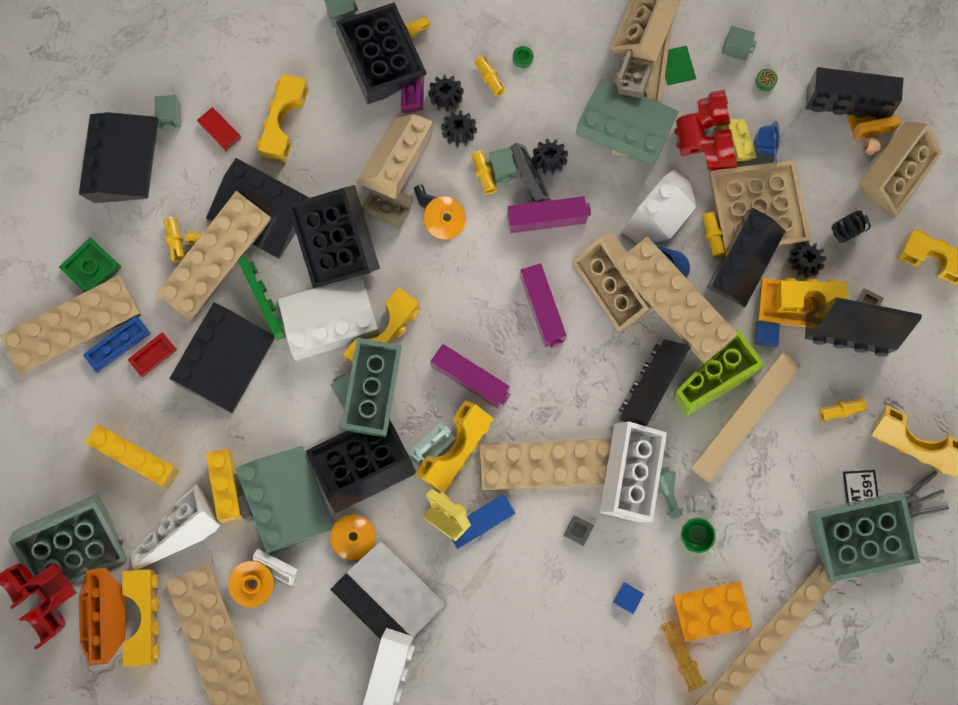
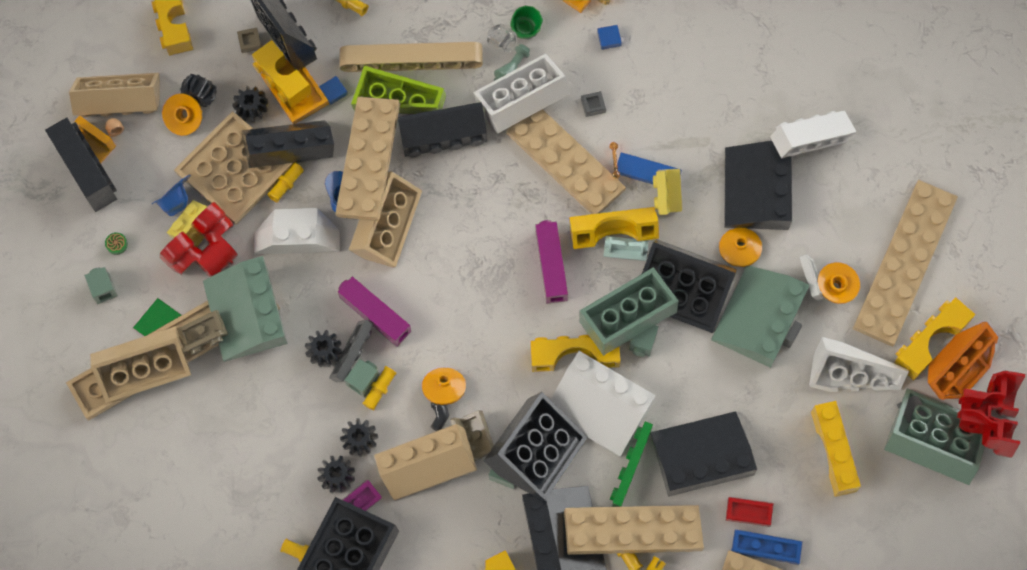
camera: 130 degrees left, 5 degrees down
(223, 484) = (791, 362): yellow arch -> none
(490, 76) = (291, 452): yellow pin -> none
(523, 57) = (250, 443): green tile -> none
(526, 513) = (614, 146): none -> clear orange hinge
(543, 306) = (450, 255): magenta brick -> none
(839, 201) = (173, 114): none -> light orange dish

